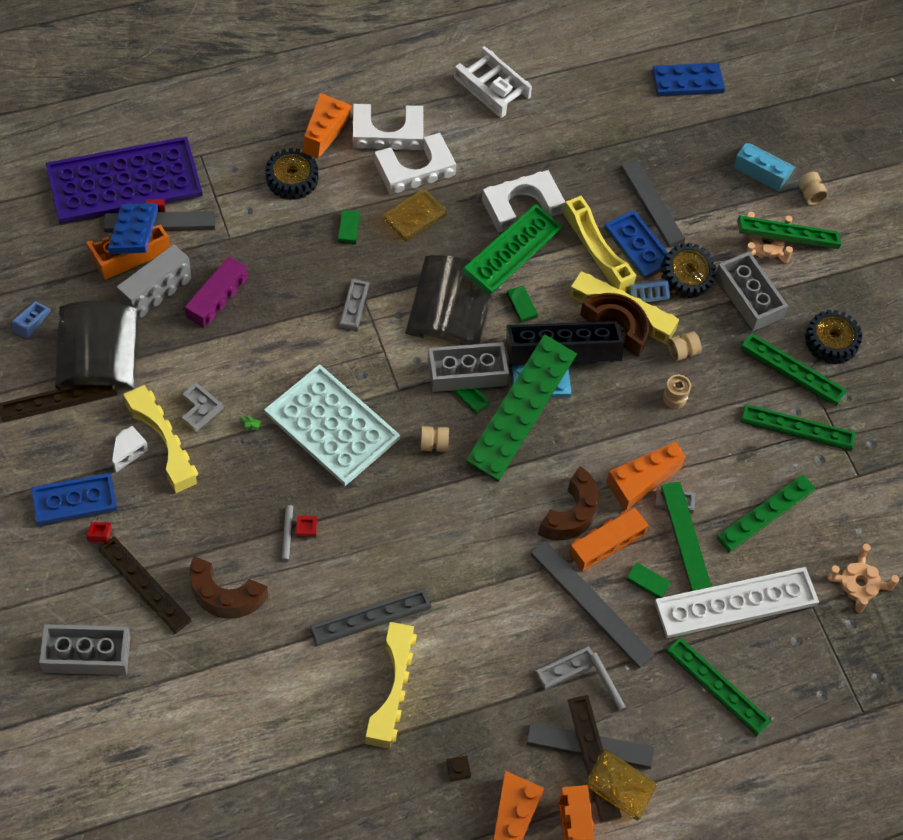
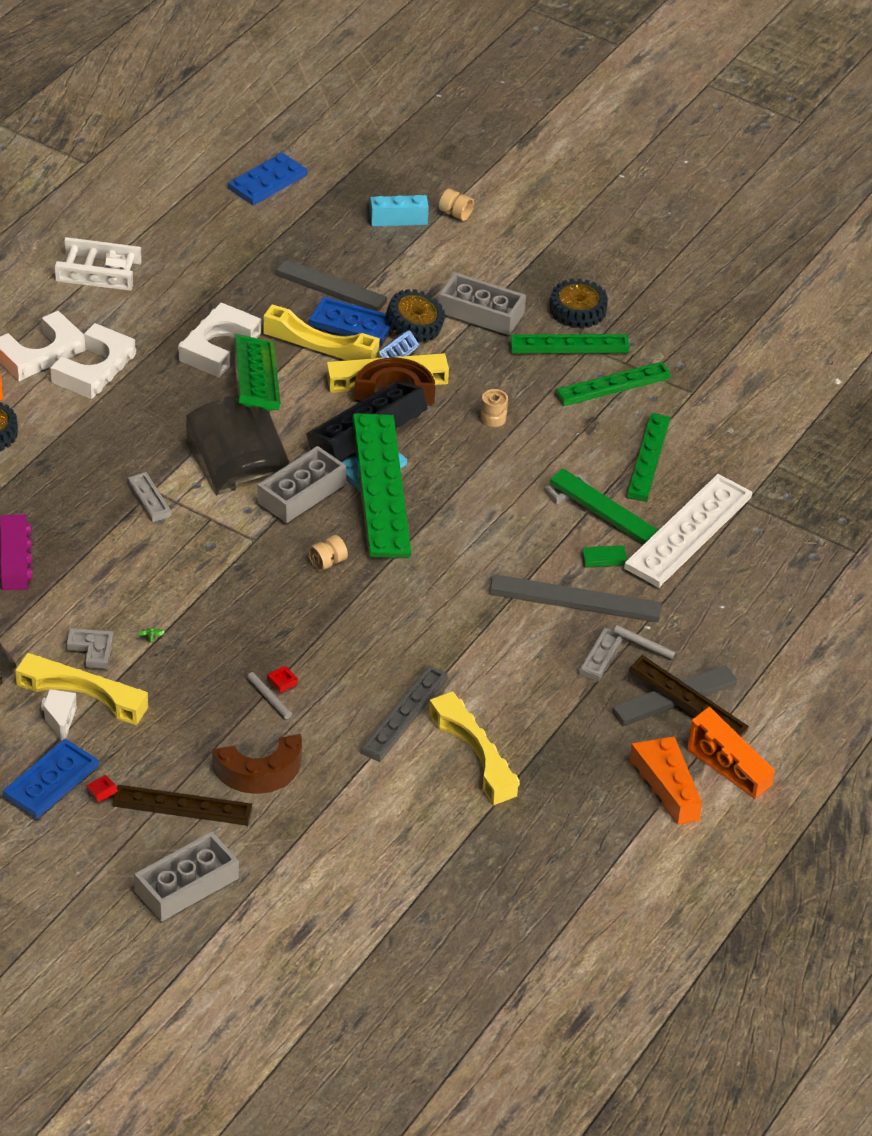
camera: 35 degrees left, 15 degrees down
(332, 424) = (225, 593): light aqua plate -> none
(349, 226) = (81, 441): green tile -> none
(414, 214) = (133, 400): clear yellow plate -> none
(458, 768) = (587, 774): dark brown plate -> none
(473, 399) = (326, 510): green tile -> none
(522, 304) = (296, 417): green tile -> none
(577, 520) = (502, 528): reddish brown brick -> none
(608, 539) = (544, 543): orange brick -> none
(621, 784) = (728, 701): clear yellow plate -> none
(640, 476) = (525, 484): orange wedge -> none
(684, 346) = (466, 372): tan wheel -> none
(718, 686) = (731, 596): green tile -> none
(771, 250) = (448, 258): light nougat plate -> none
(788, 232) = (470, 244): green plate -> none
(862, 571) = (779, 466): light nougat plate -> none

